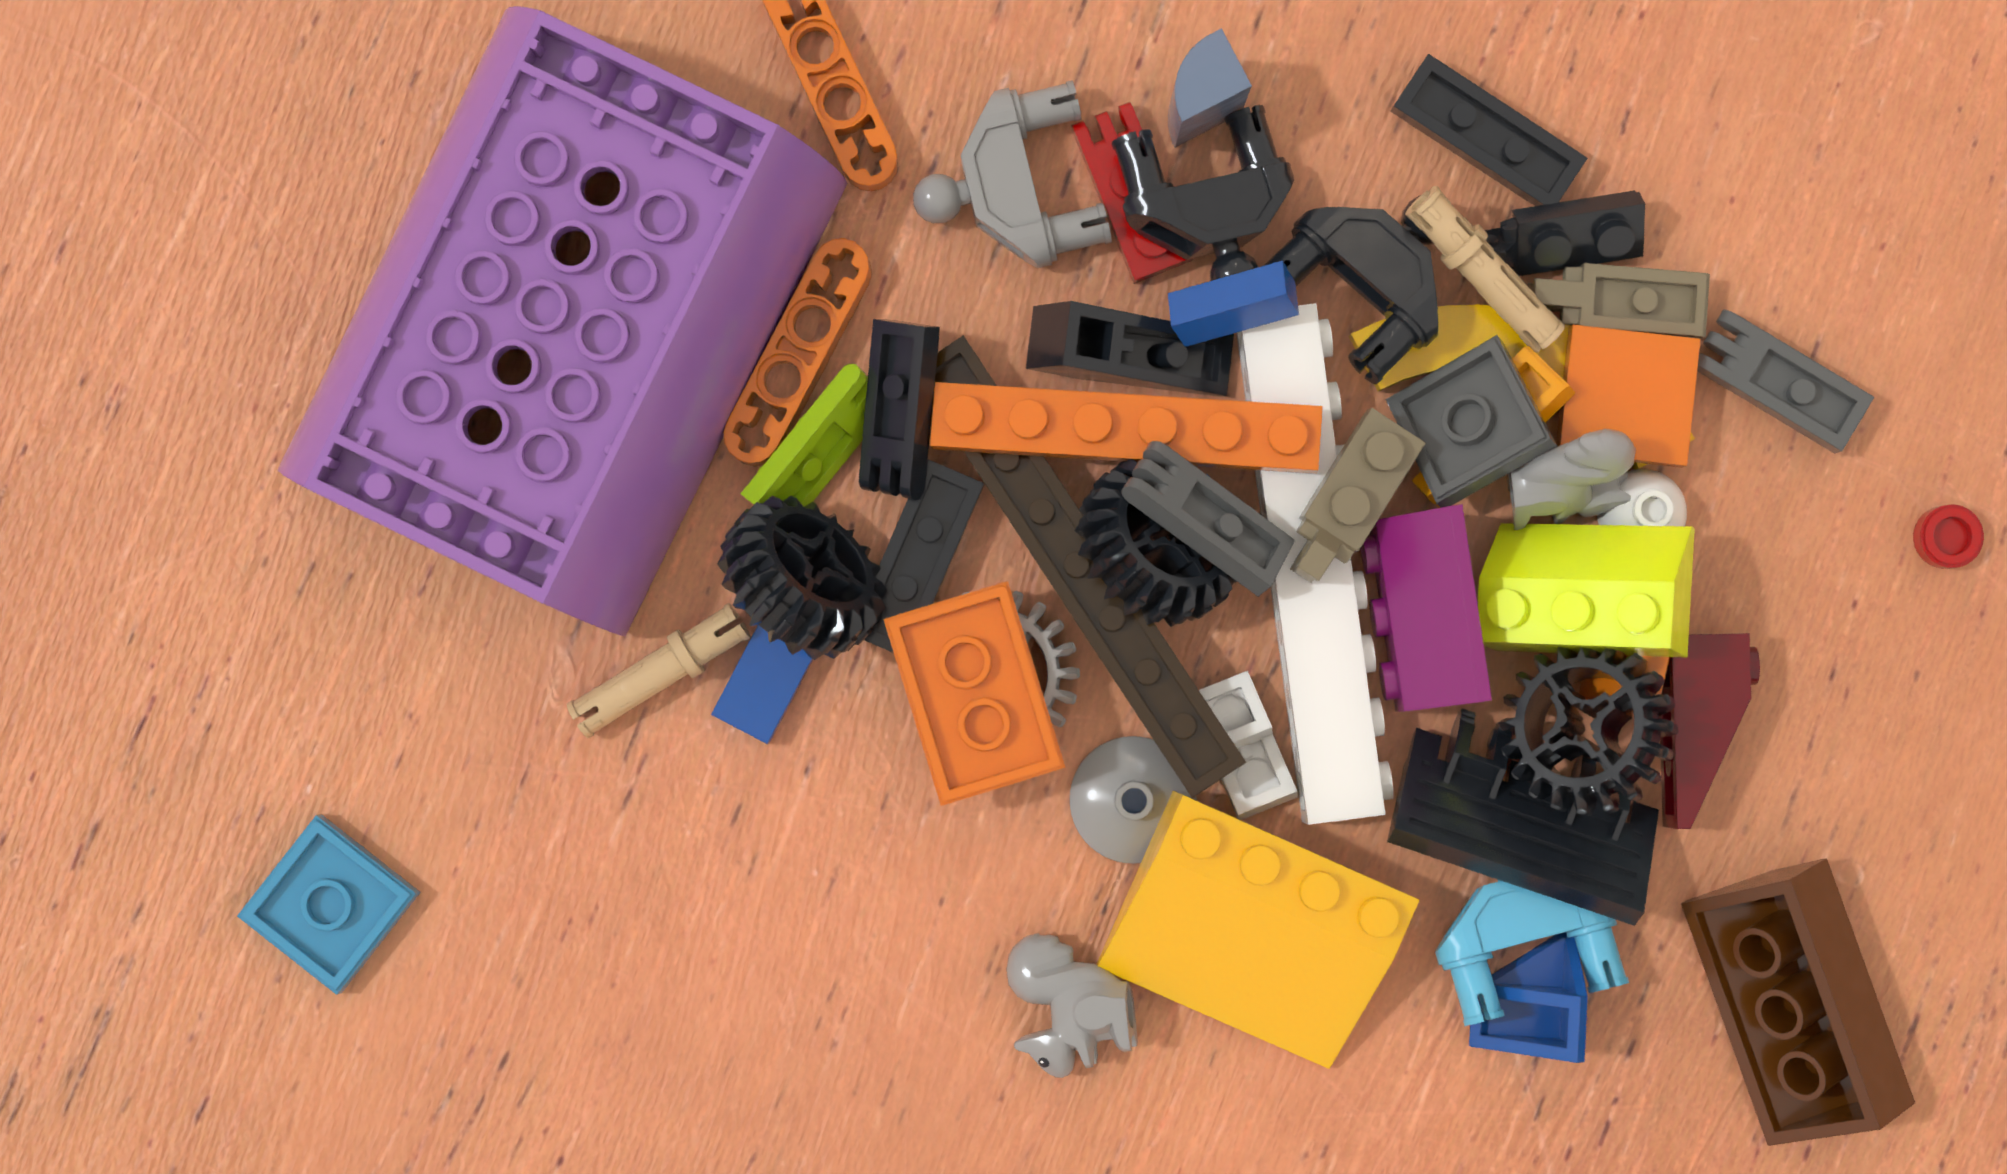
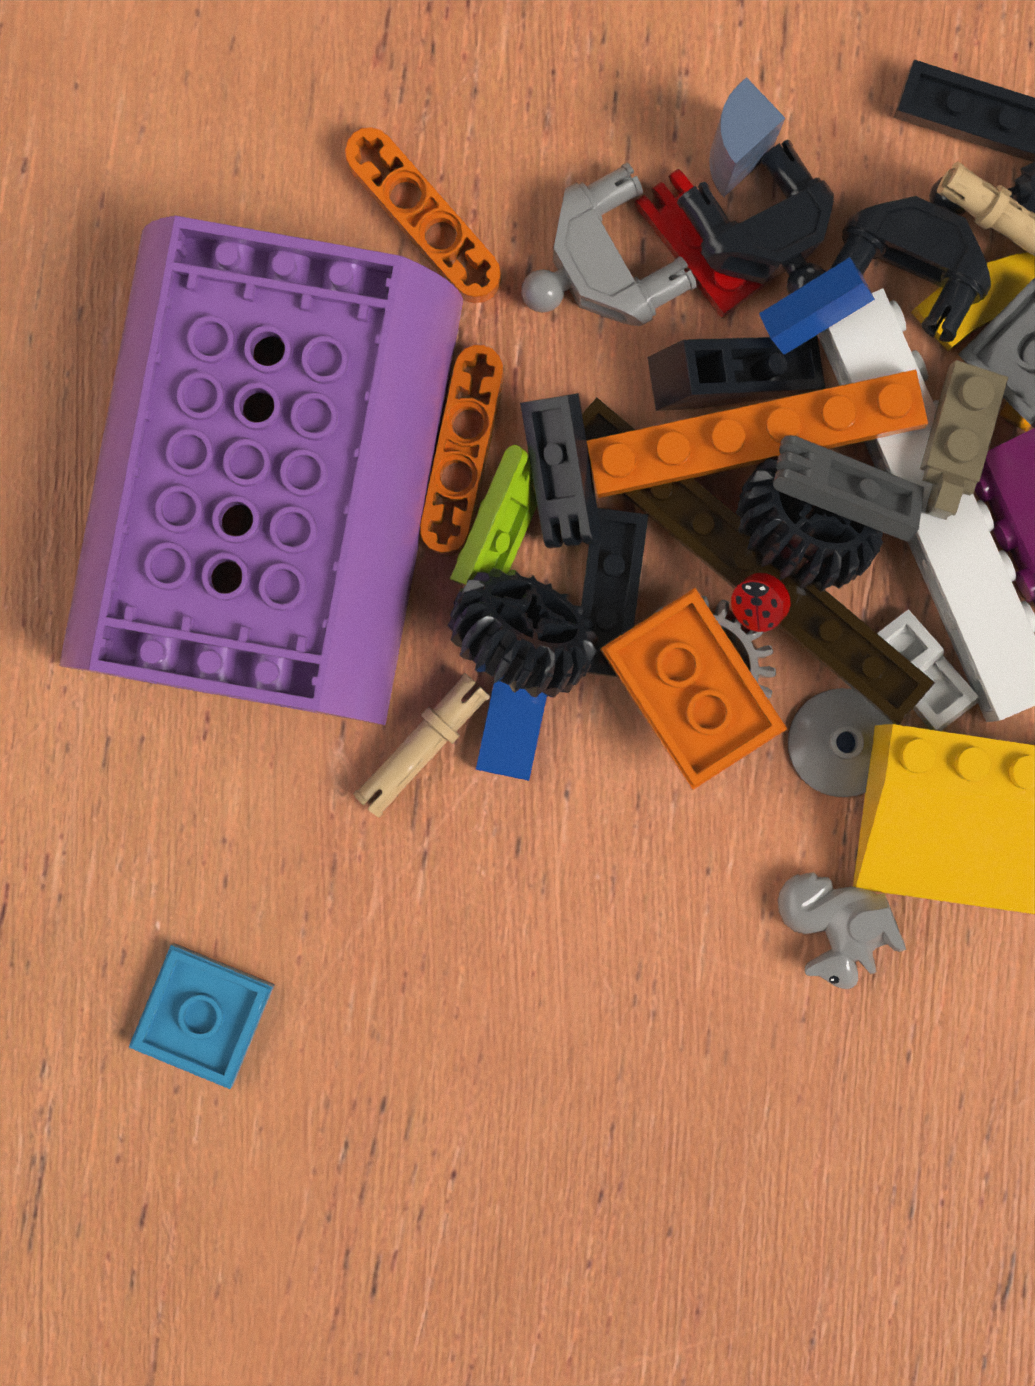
camera: 20 degrees left, 0 degrees up
(1076, 617) = (760, 602): none -> red tile

